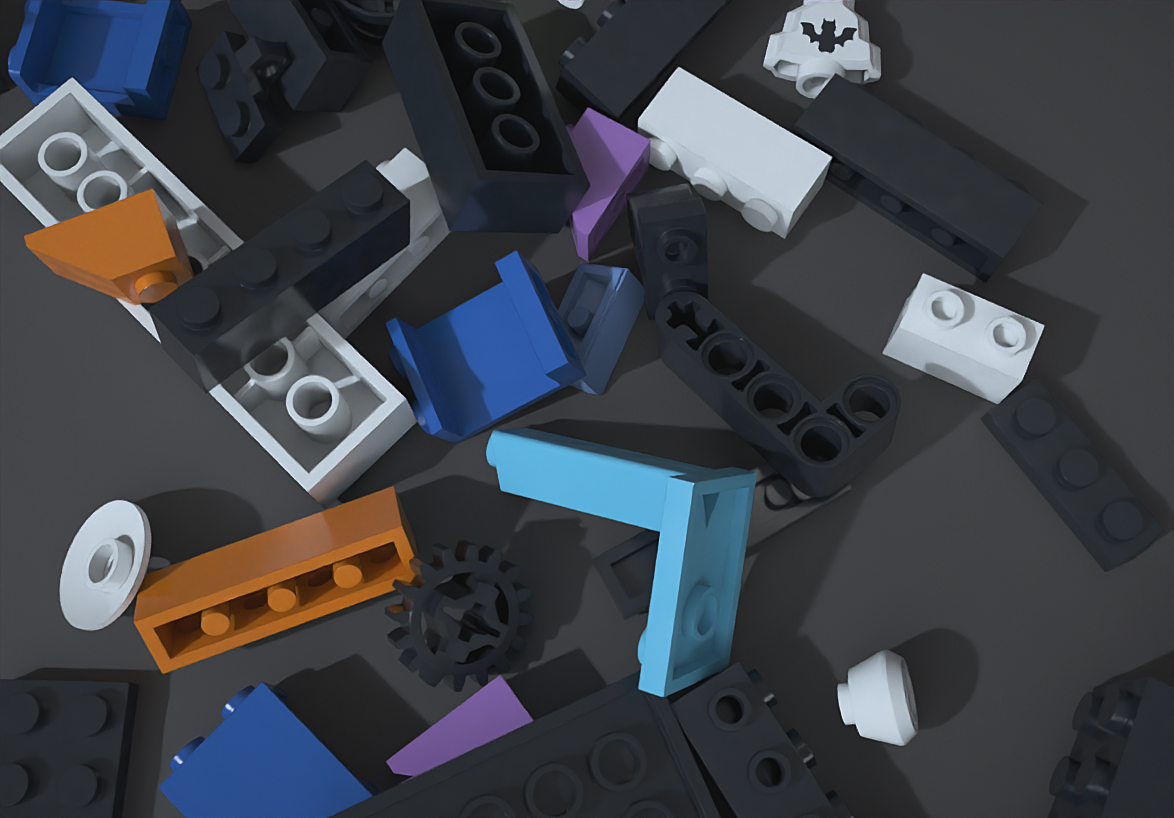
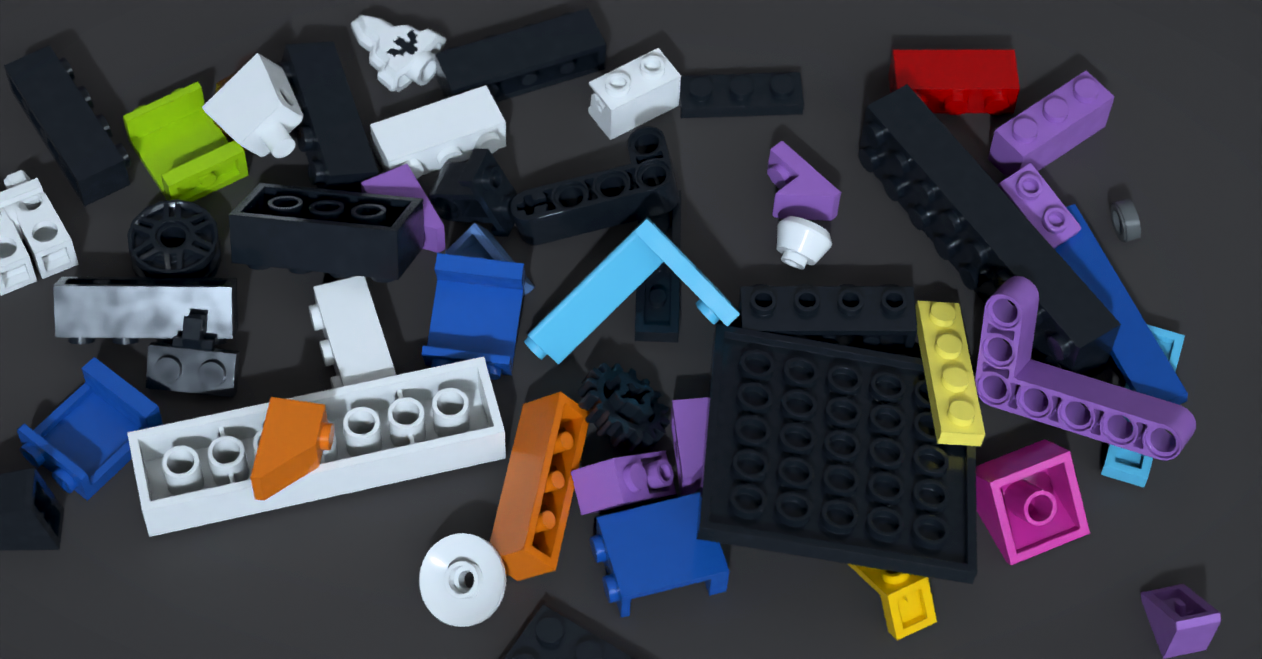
camera: 65 degrees left, 15 degrees down
(282, 276) = (373, 365): black brick -> none
(348, 683) = (623, 482): none -> medium lavender slope
(973, 658) = (801, 187): none -> medium lavender slope

